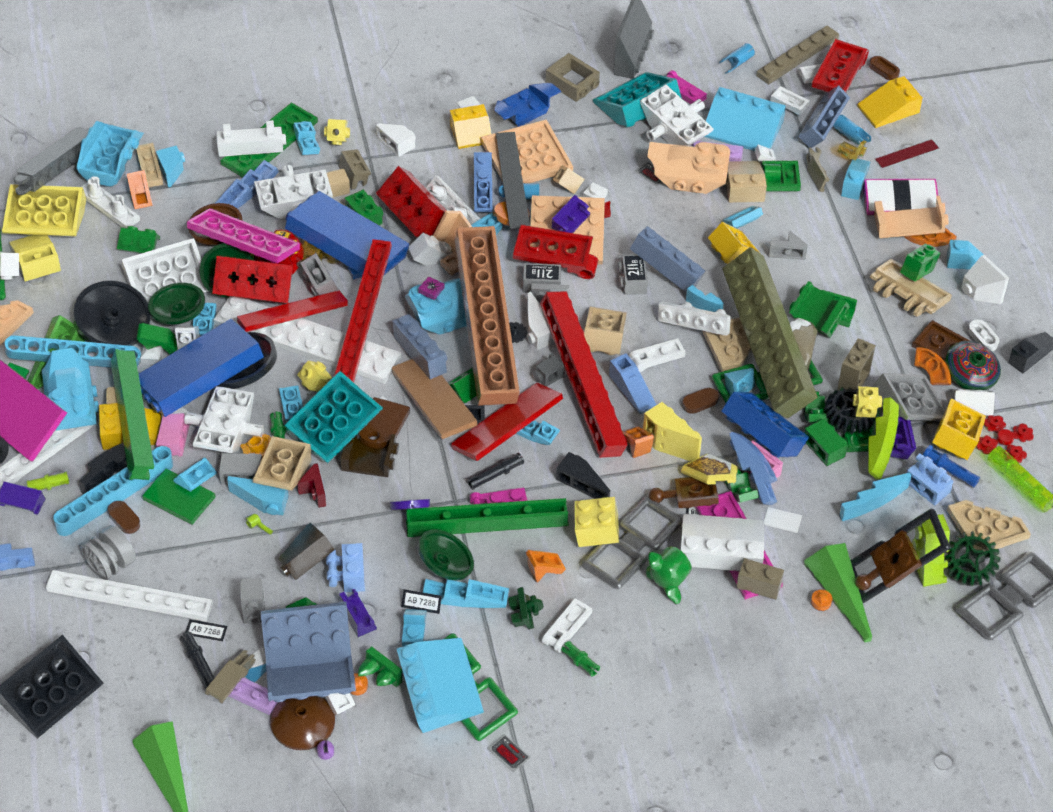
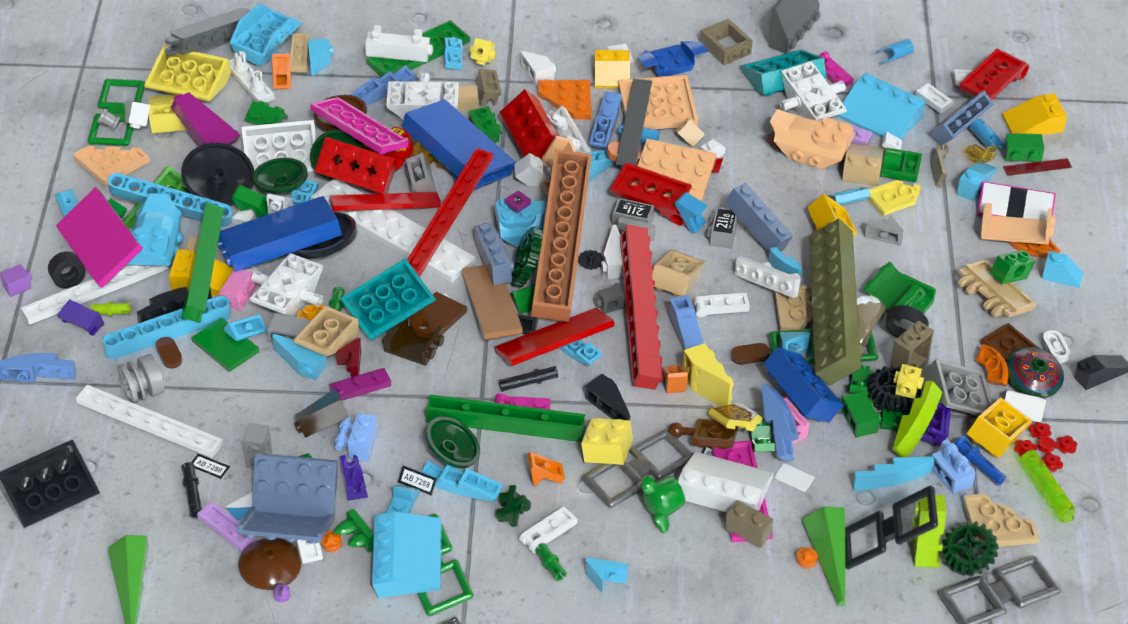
camera: 15 degrees right, 5 degrees down
(78, 261) = (202, 122): none -> magenta slope
(230, 676) = (214, 508): dark tan arm -> none
(254, 520) = (286, 378): lime hand -> none
(290, 401) = (357, 277): medium azure slope -> none
(314, 375) = (384, 259): light yellow brick -> none
(331, 510) = (361, 384): none -> magenta plate
(410, 504) = (434, 390): dark purple tile -> none
(435, 160) = (571, 94): none -> orange plate
(457, 343) = (527, 256): none -> dark green gear
(571, 215) = (676, 162): dark purple hinge -> none
(600, 264) = (691, 210): none -> dark azure slope
(632, 657) = (603, 570): none -> medium azure slope
(784, 210) = (893, 196): none -> light yellow tile
(797, 55) = (956, 58): dark tan plate -> none
(839, 331) = (904, 312): none -> black tyre
(883, 559) = (878, 541): reddish brown plate -> none
(884, 68) = (1040, 83): reddish brown tile -> none
(890, 136) = (1023, 147): none -> green brick
(985, 282) = (1072, 296): white slope -> none

